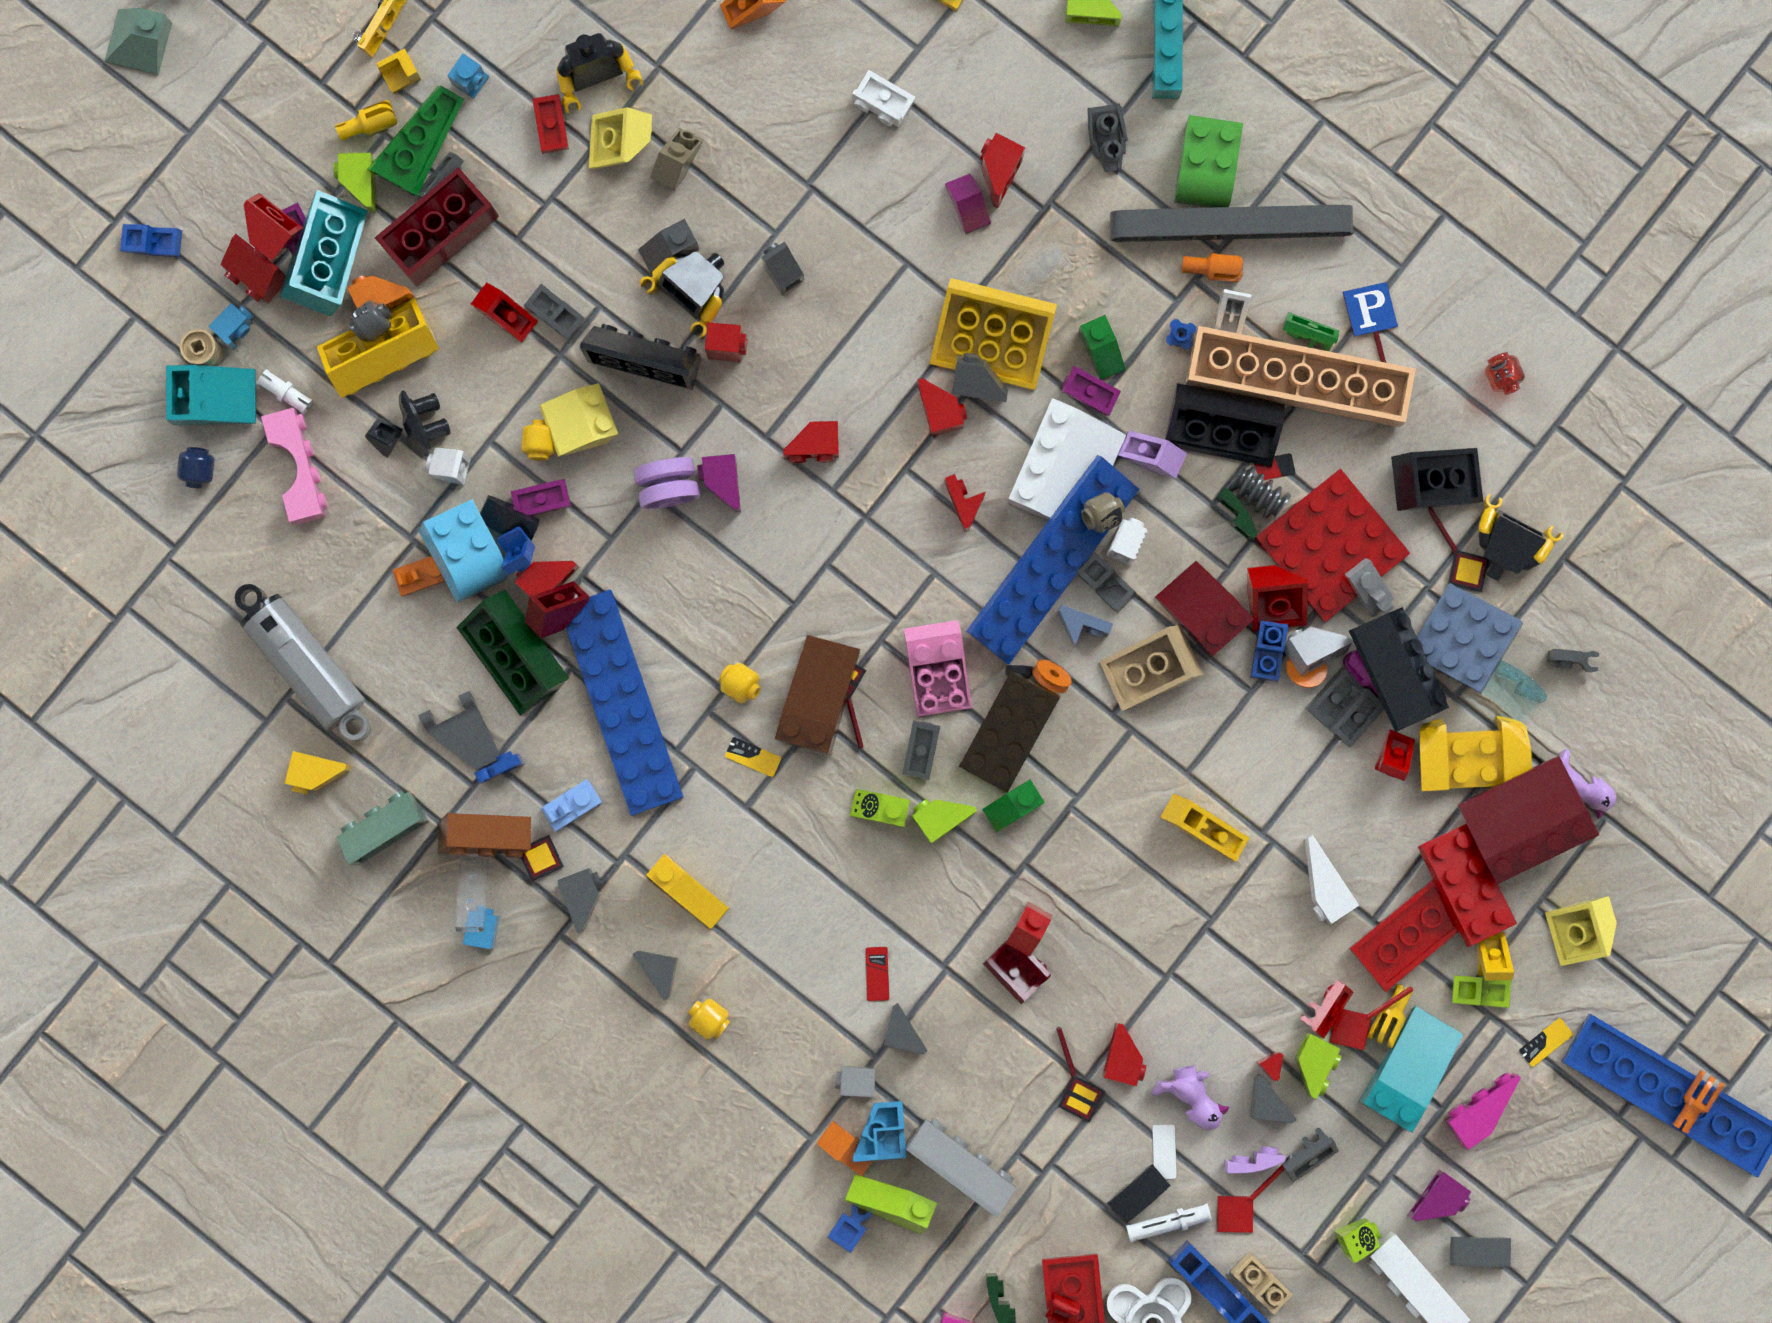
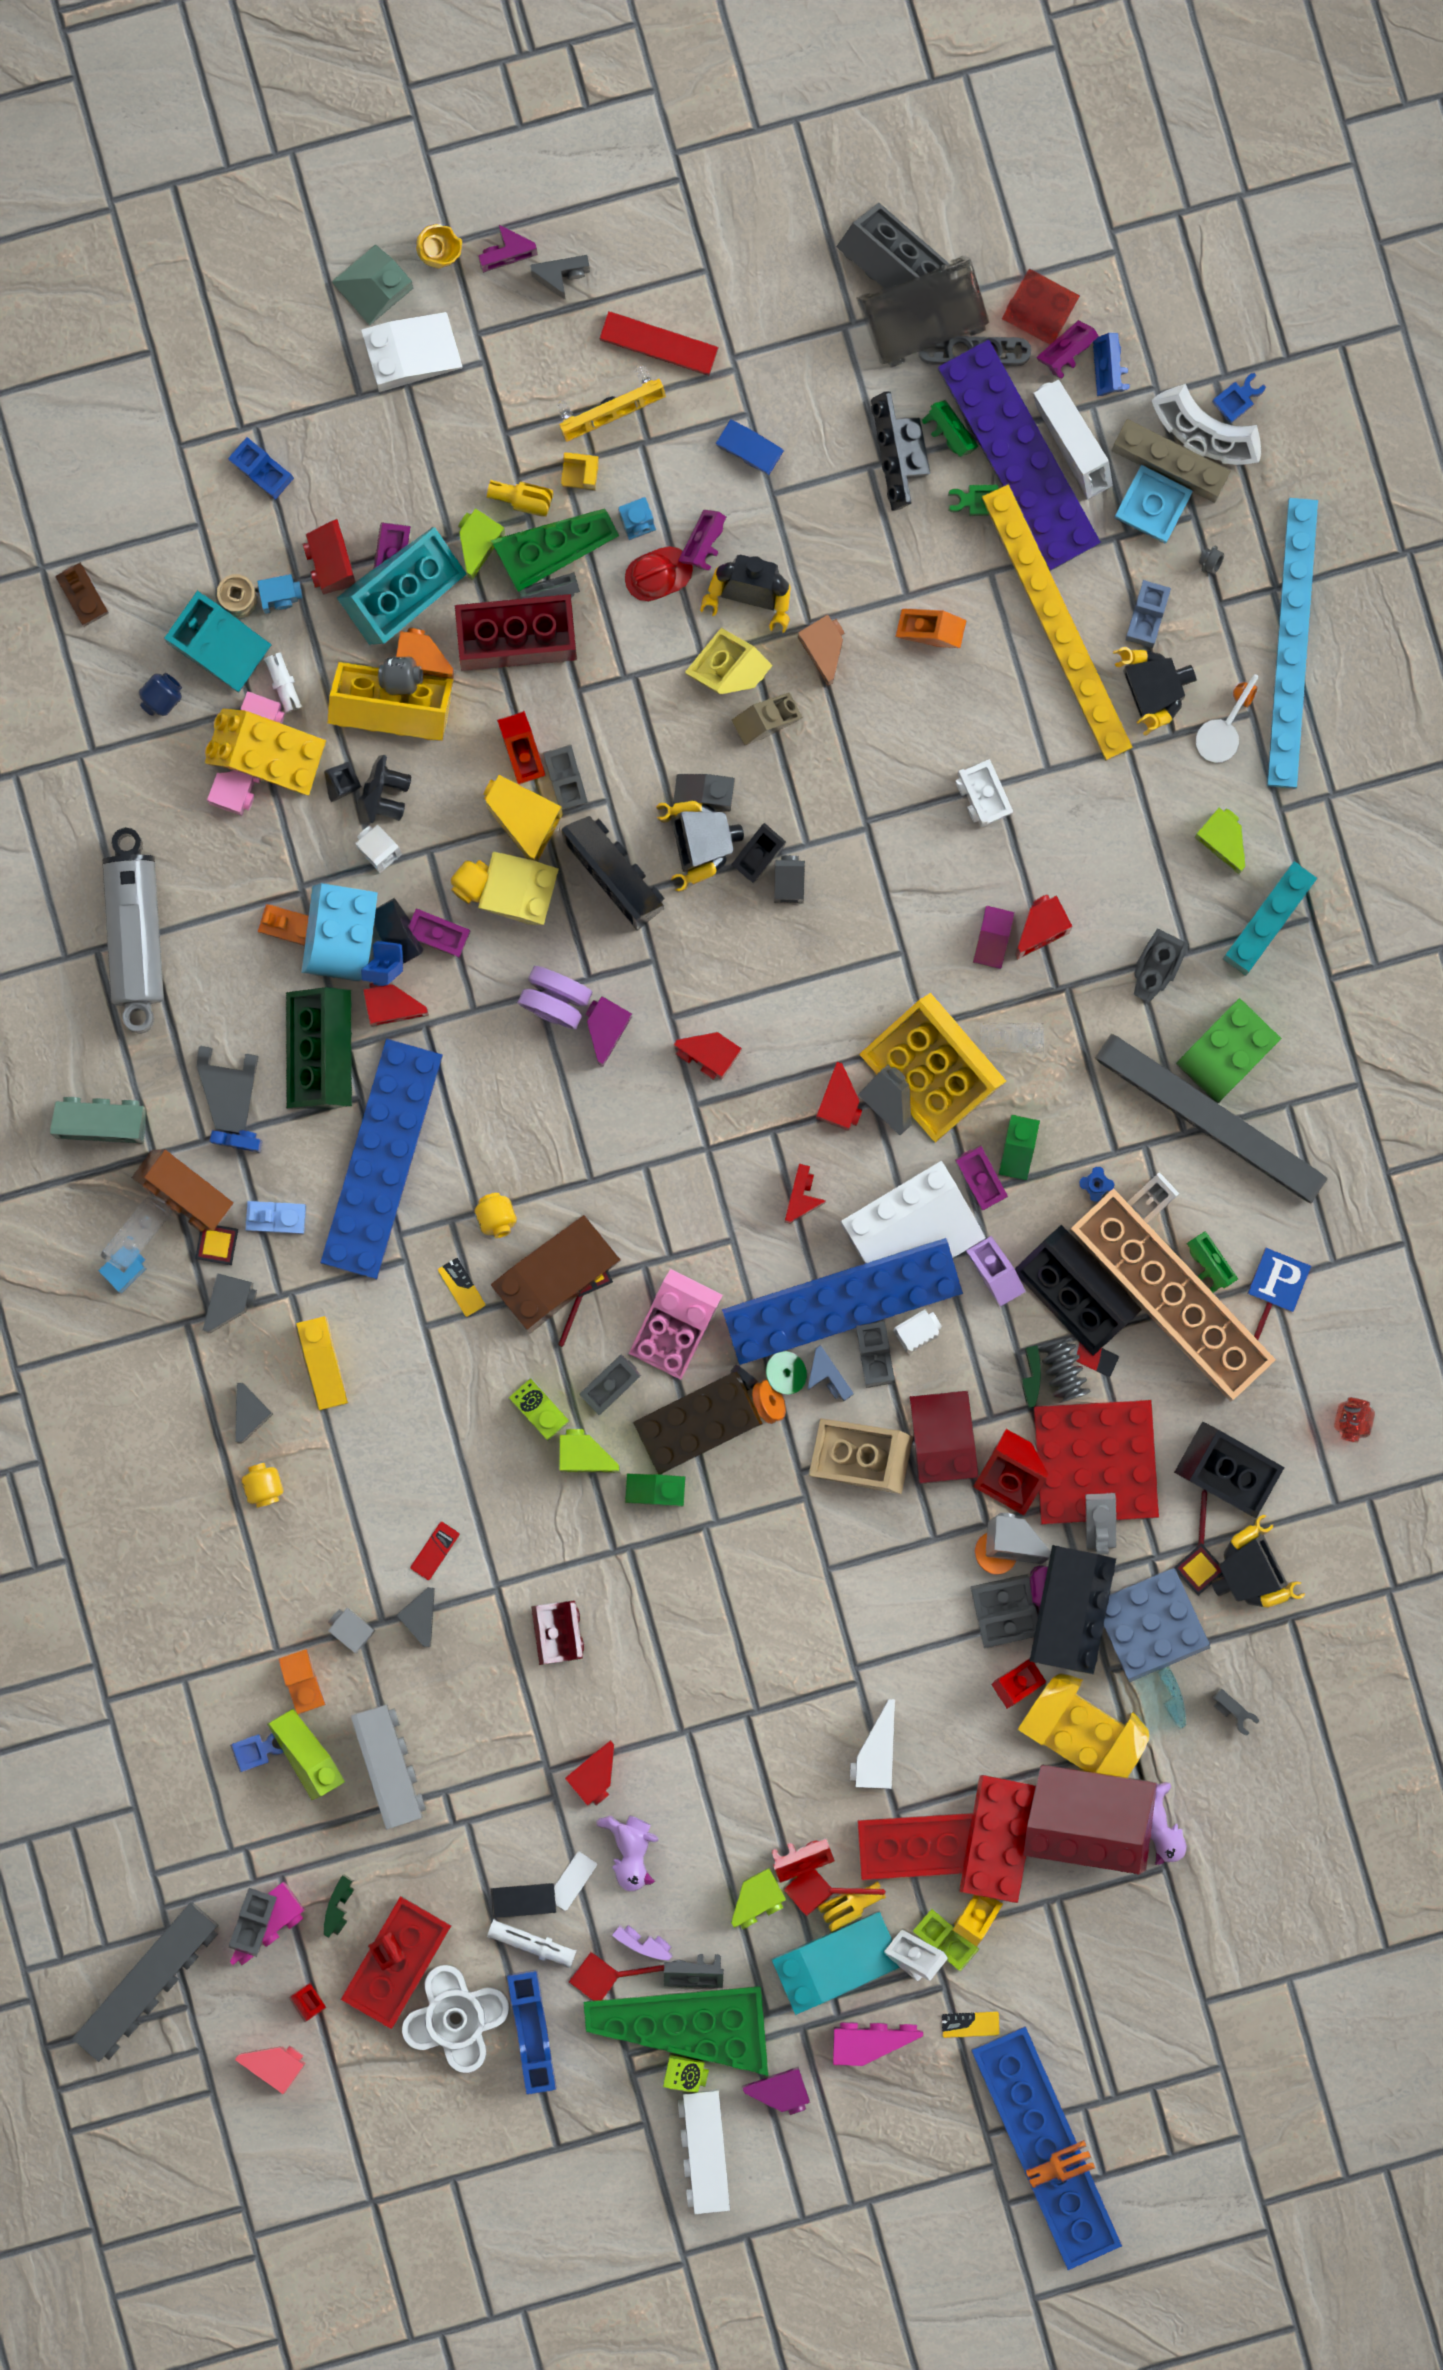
camera: 35 degrees right, 0 degrees up
(80, 433) = (82, 594): none -> reddish brown plate
(202, 70) = (411, 350): none -> white slope
(269, 227) = (369, 534): red slope -> none
(306, 451) = (265, 750): none -> yellow bracket
(312, 772) = (74, 1030): yellow slope -> none
(513, 108) = (657, 574): none -> red piece
(528, 51) = (704, 534): none -> magenta plate
(541, 361) = (523, 815): none -> yellow slope
(550, 123) = (679, 610): red plate -> none
(555, 608) = (382, 1038): dark red slope -> none
(680, 73) = (823, 644): none -> nougat slope
(725, 342) = (693, 910): red brick -> none
(744, 263) = (759, 853): none -> black slope
(883, 1134) = (340, 1691): dark azure slope -> none
(1029, 929) = (592, 1604): red slope -> none
(1048, 645) = (786, 1372): none -> piece
(1080, 1096) = (534, 1781): piece -> none
(1102, 512) = (912, 1291): dark tan head -> none
(1204, 827) = (807, 1626): yellow slope -> none
(1215, 267) = (1168, 1146): orange arm -> none
(1261, 1283) = (574, 2052): tan slope -> none
(1267, 1104) = (689, 1903): dark grey slope -> none
(1269, 651) = (974, 1514): blue slope -> none
(1272, 1065) = (717, 1872): red slope -> none
(1343, 1191) = (703, 2025): none -> green wing
(1469, 1020) = (915, 1956): none -> white slope
(1480, 1251) = (782, 2161): dark grey slope -> none
(1583, 930) = (1071, 1949): light yellow slope -> none

